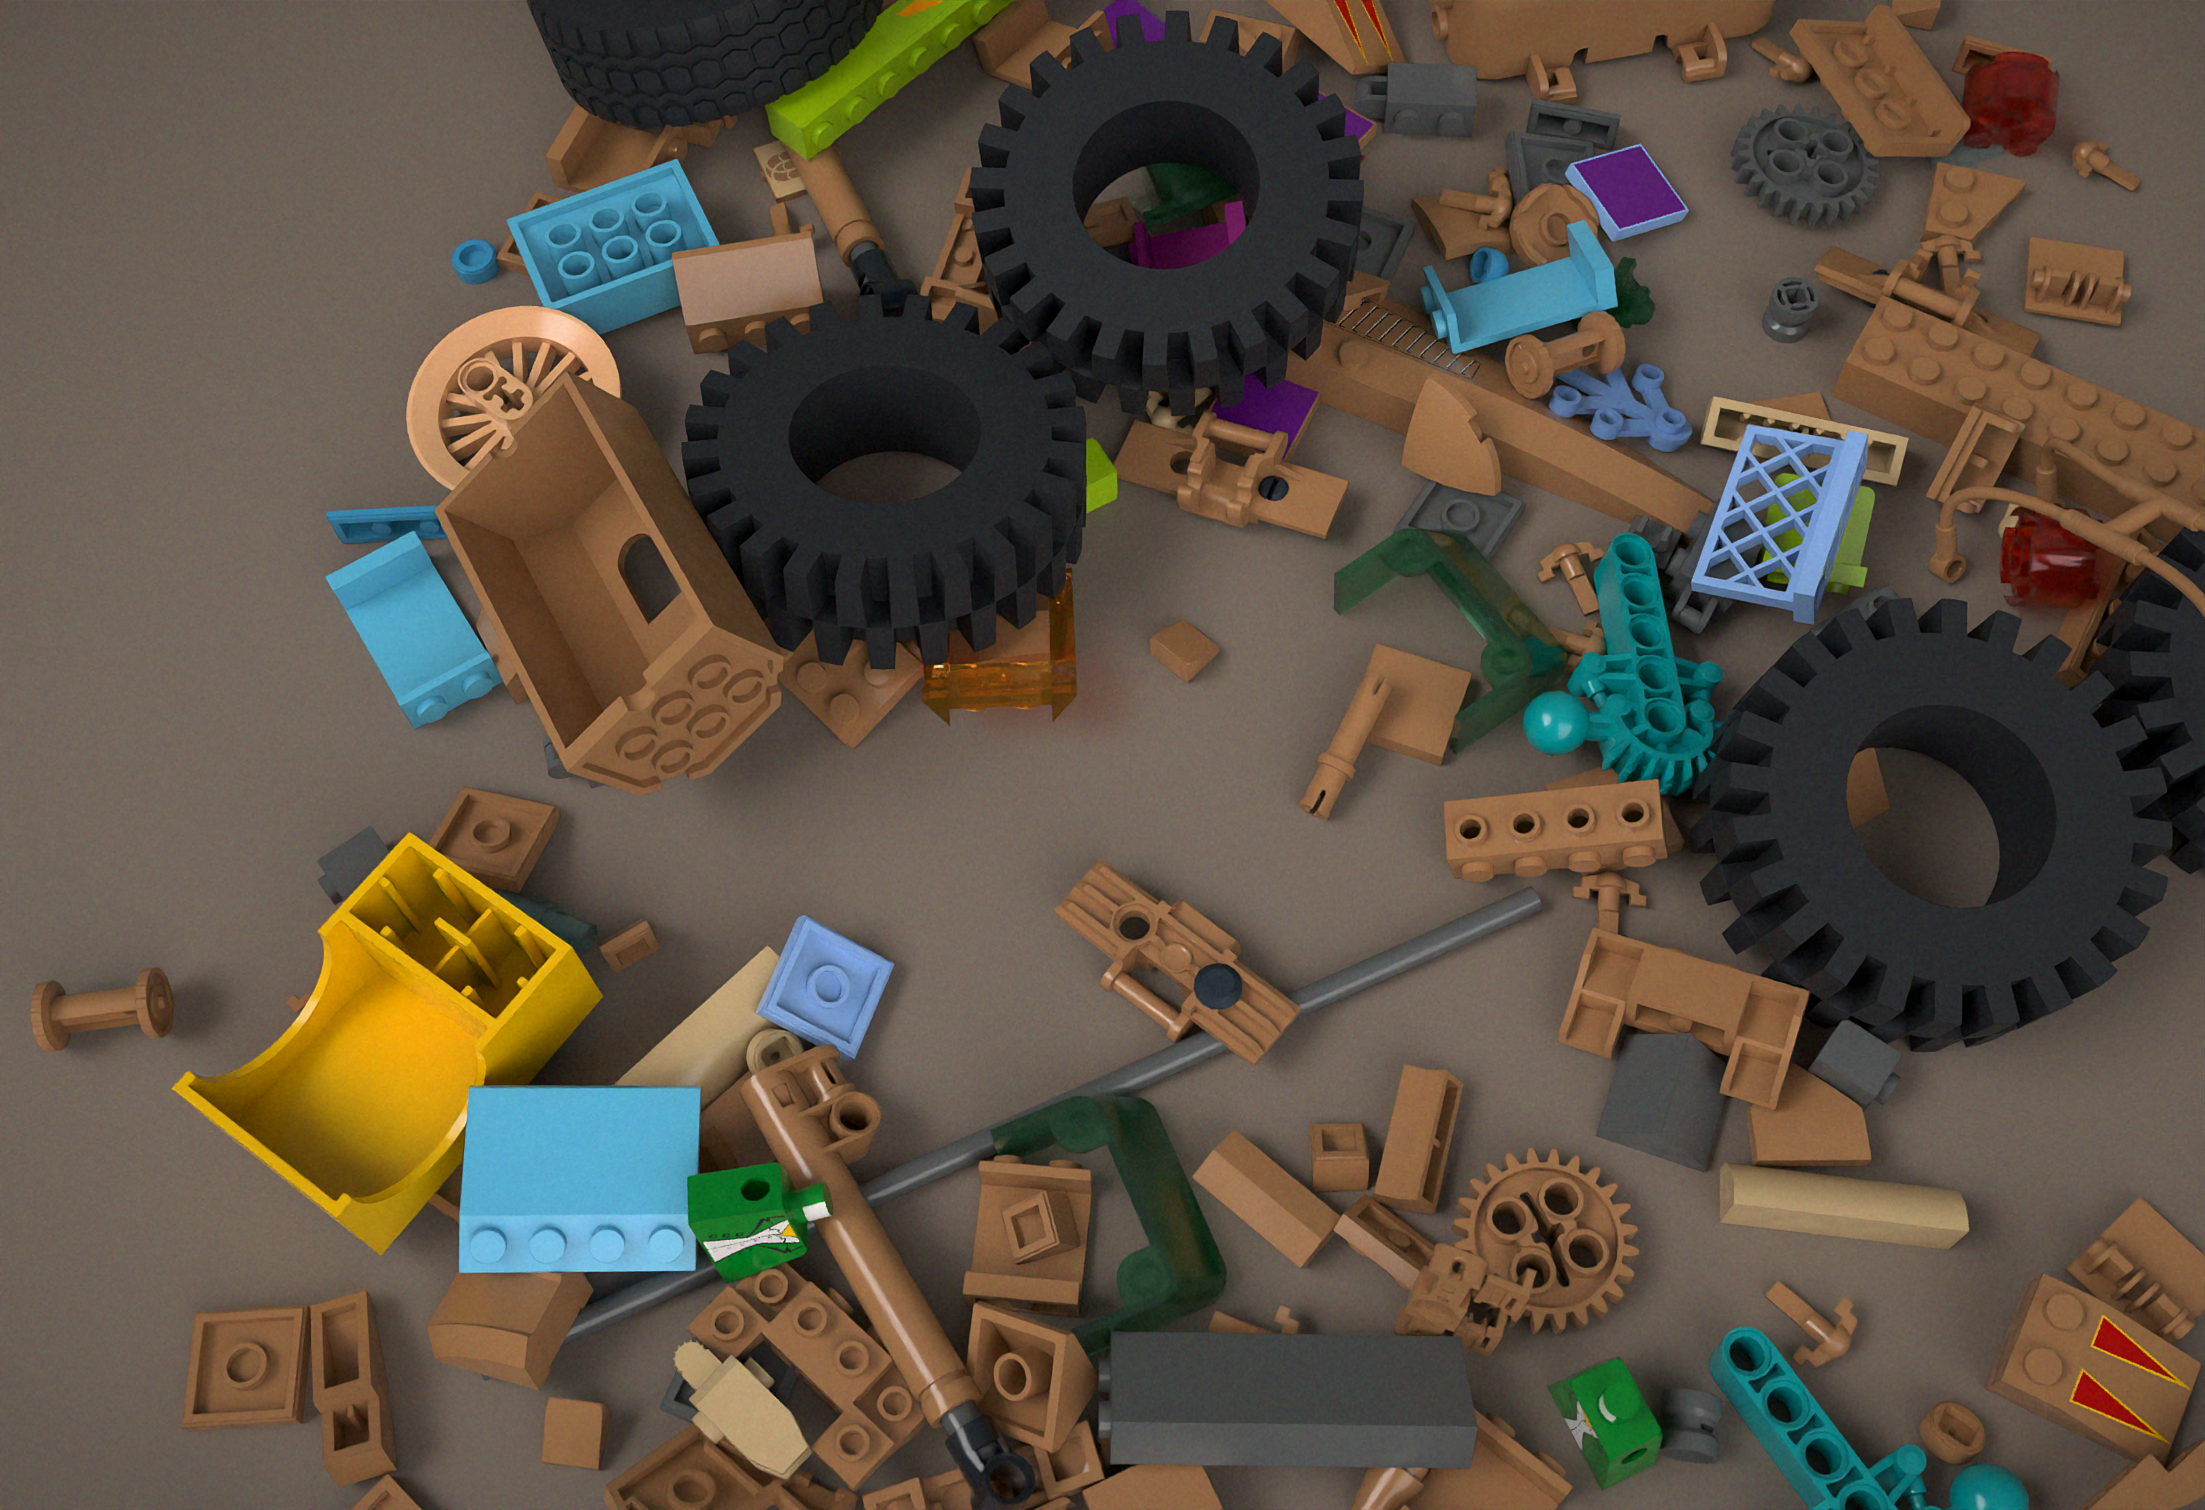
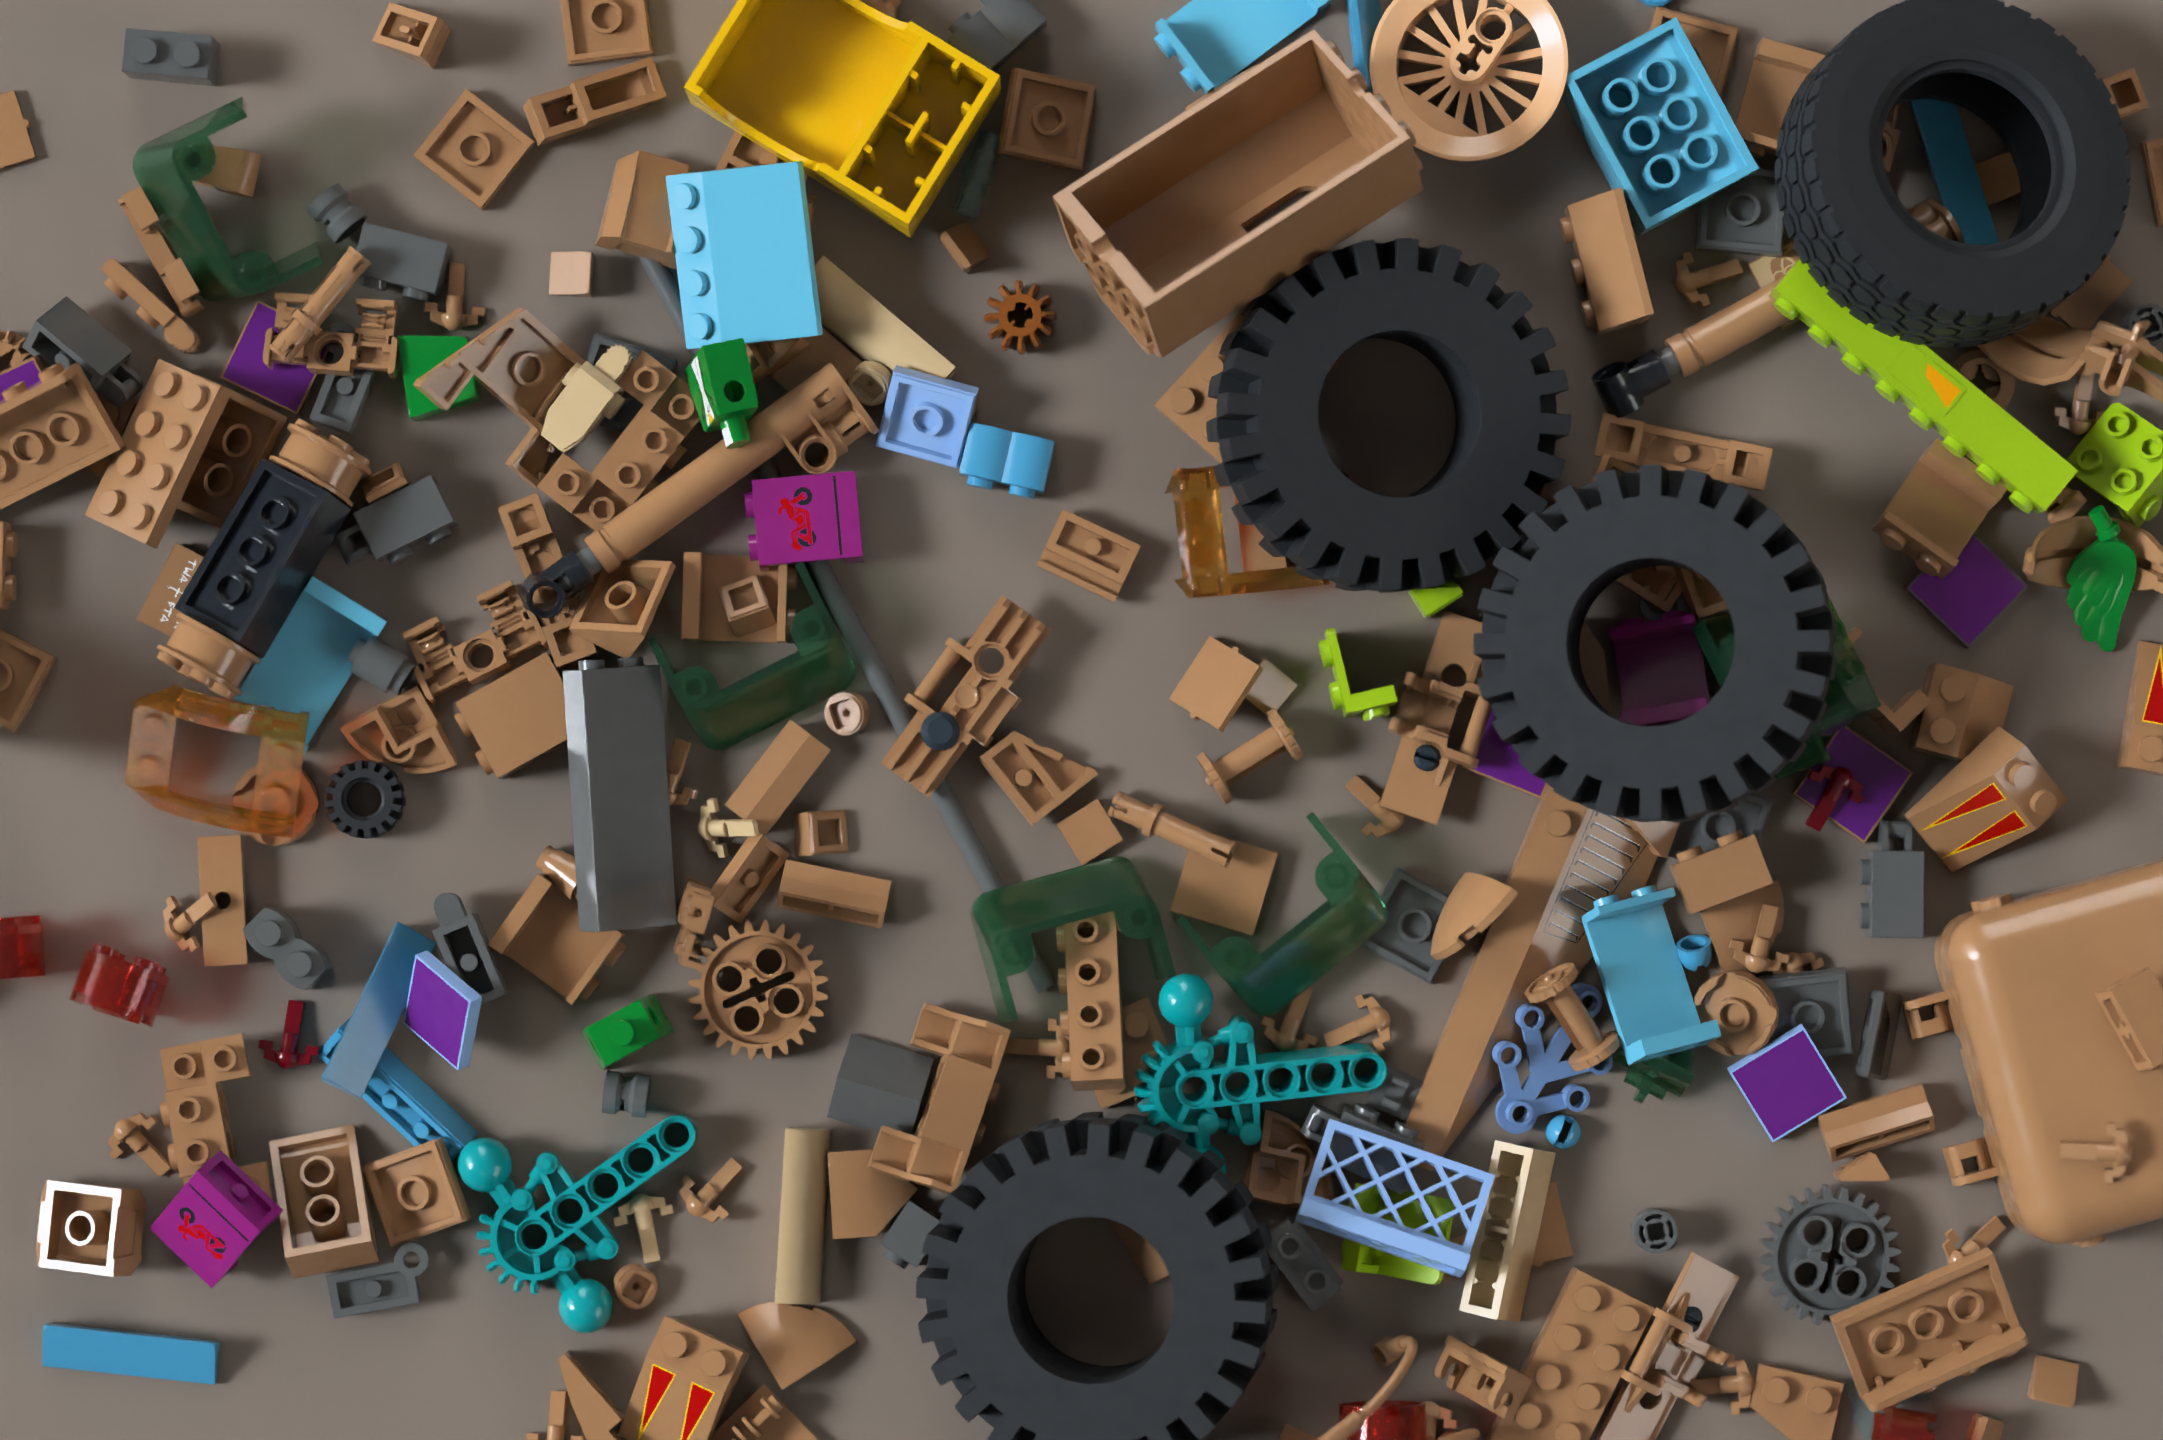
camera: 85 degrees right, 25 degrees up
(720, 897) = (1008, 308): none -> dark orange gear
(730, 193) = (1743, 218): none -> dark grey tile
(890, 901) = (1006, 459): none -> dark azure brick
(937, 1142) = (805, 519): none -> magenta panel
(1015, 822) = (1088, 555): none -> medium nougat plate
(1177, 692) = (1216, 683): none -> medium nougat piece
(1181, 554) = (1370, 703): none -> lime bracket
(1187, 1111) = (847, 713): none -> medium nougat tile
(1243, 627) = (1250, 756): none -> medium nougat hose
(1276, 897) = (1034, 775): none -> medium nougat wing
(1329, 1293) = (711, 828): none -> tan piece
(1340, 534) = (1390, 820): none -> medium nougat piece
(1346, 842) = (1089, 832): none -> medium nougat piece
(1407, 227) = (1721, 872): none -> medium nougat brick
(1452, 909) = (1011, 913): none -> clear green windscreen
(1661, 125) = (1876, 1122): none -> medium nougat piece
(1685, 392) = (1555, 1127): none -> dark azure hinge
(1713, 135) = (1862, 1168): none -> medium nougat slope
(1742, 648) = (1282, 1164): none -> medium nougat brick
(1863, 1416) = (641, 1207): none -> tan piece
(2008, 1226) = (794, 1338): none -> medium nougat brick

